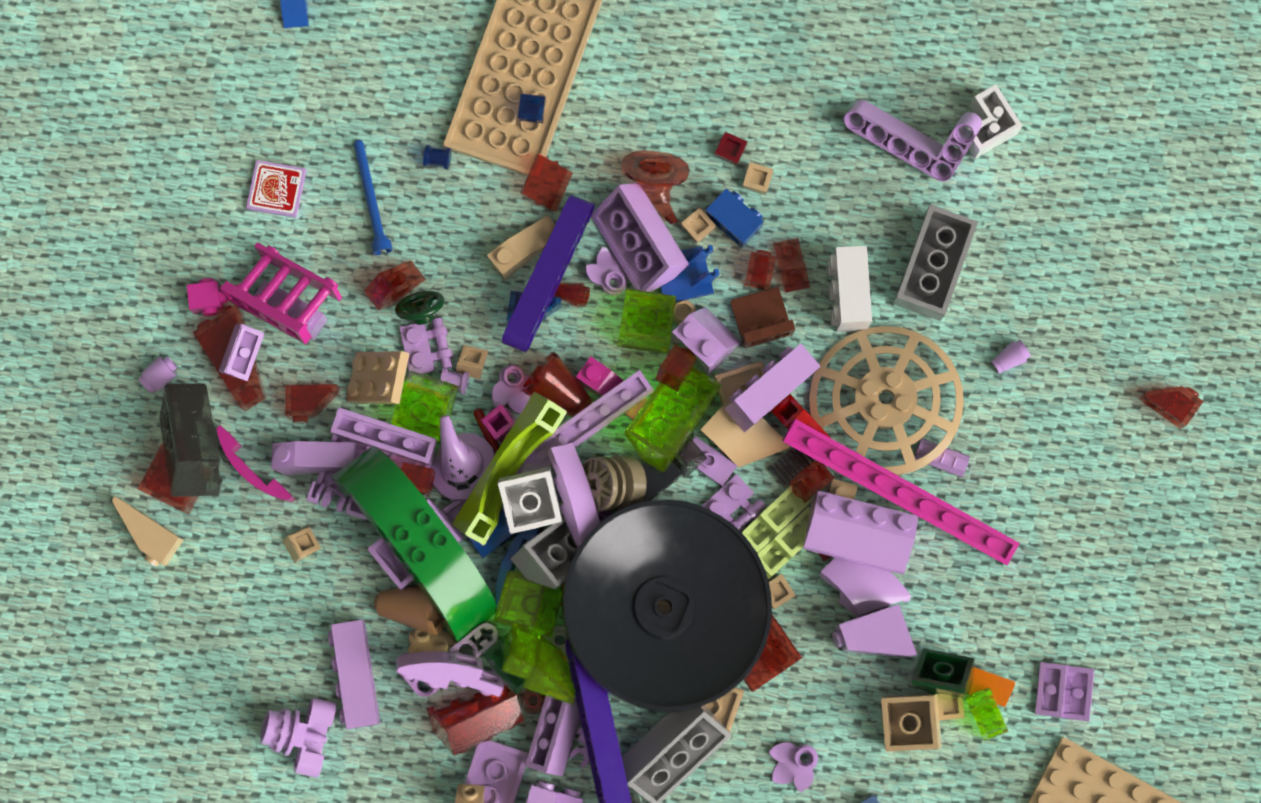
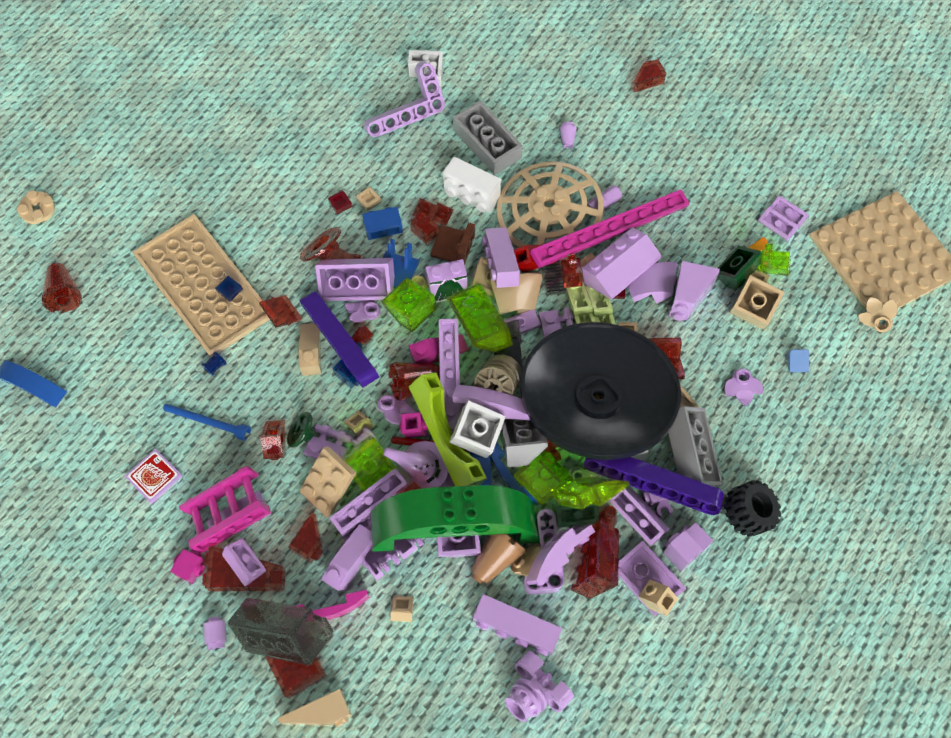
camera: 55 degrees left, 15 degrees down
(676, 368) = (453, 297): clear red brick -> none
(698, 225) = (372, 245): tan plate -> none

